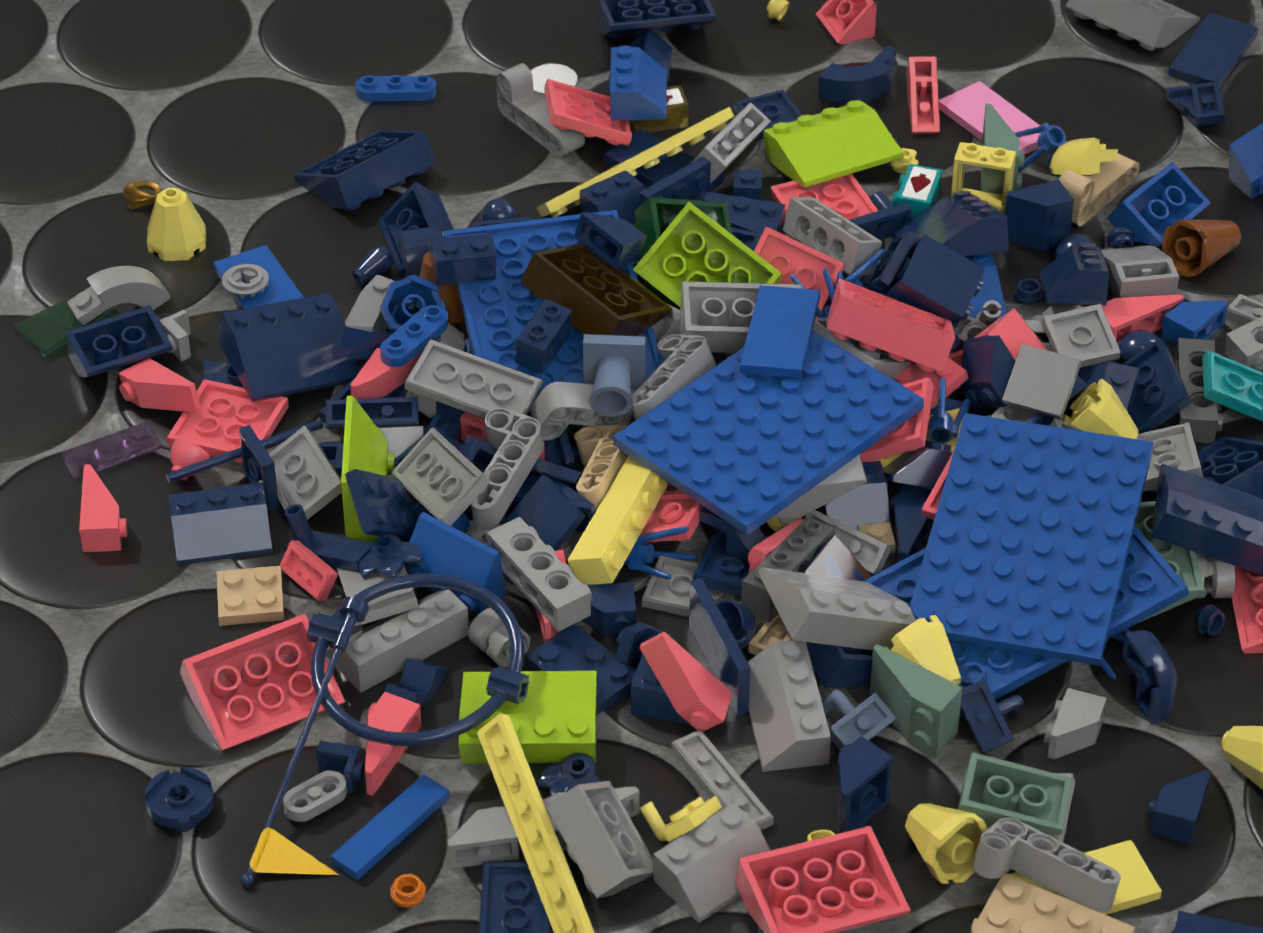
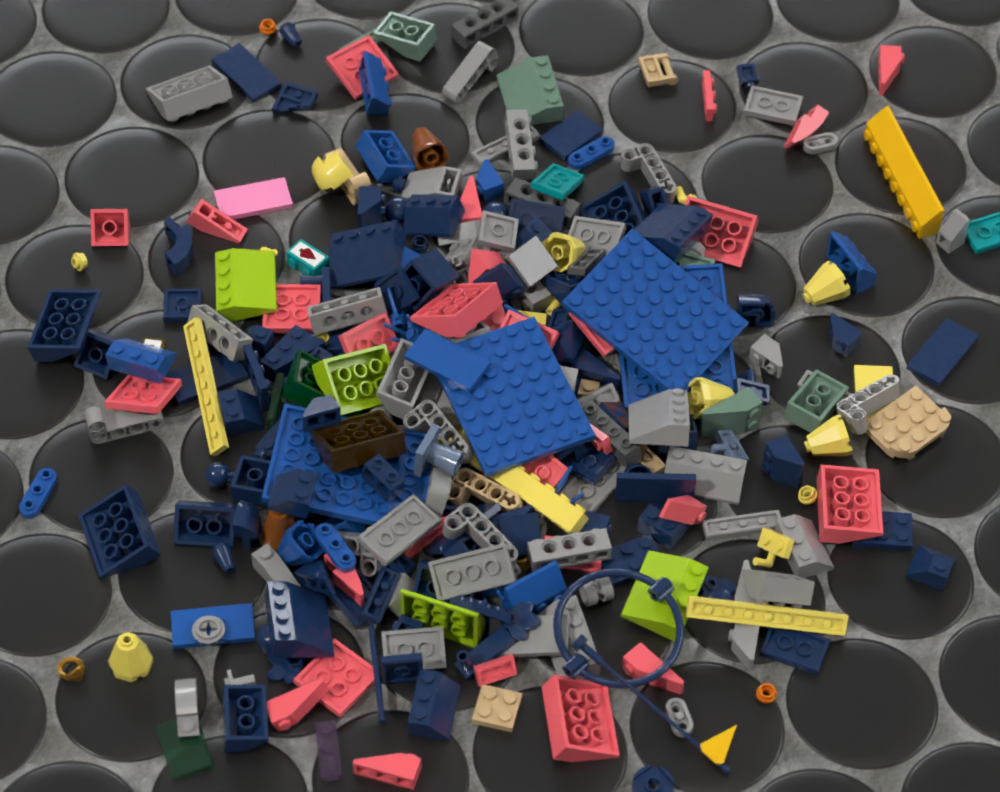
camera: 70 degrees left, 10 degrees up
(186, 453) = (365, 708): coral brick -> none
(341, 759) = (662, 692): dark blue bracket -> none
(390, 827) = (714, 688): blue tile -> none
(418, 681) = (609, 644): dark blue slope -> none
(554, 72) = (74, 404): white sticker -> none
(631, 639) = (629, 524): dark blue bracket -> none
(988, 158) = (332, 210): light yellow window -> none
(999, 135) = (300, 207): sand green slope -> none
(1048, 141) = (308, 178): blue plant -> none

